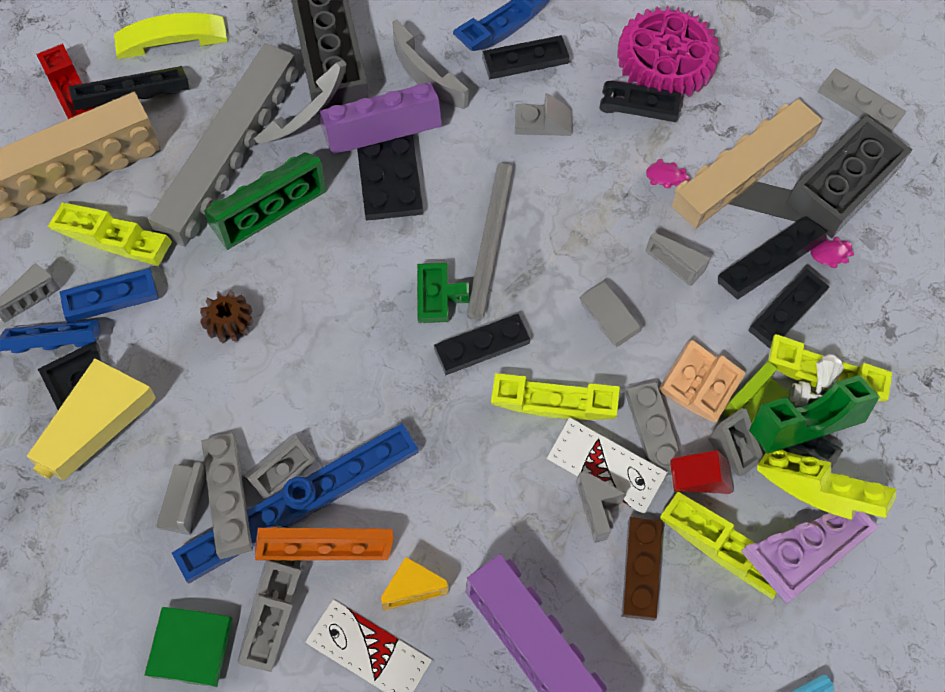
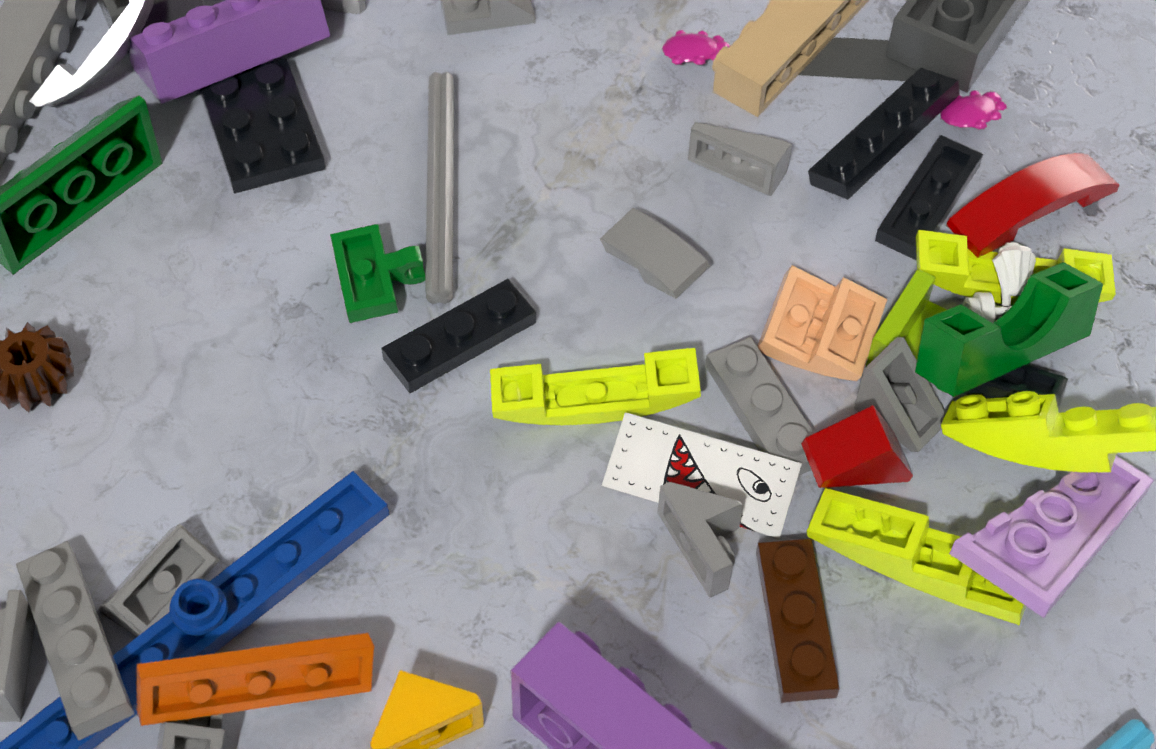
camera: 10 degrees left, 10 degrees down
(852, 322) = (1028, 195): none -> red slope

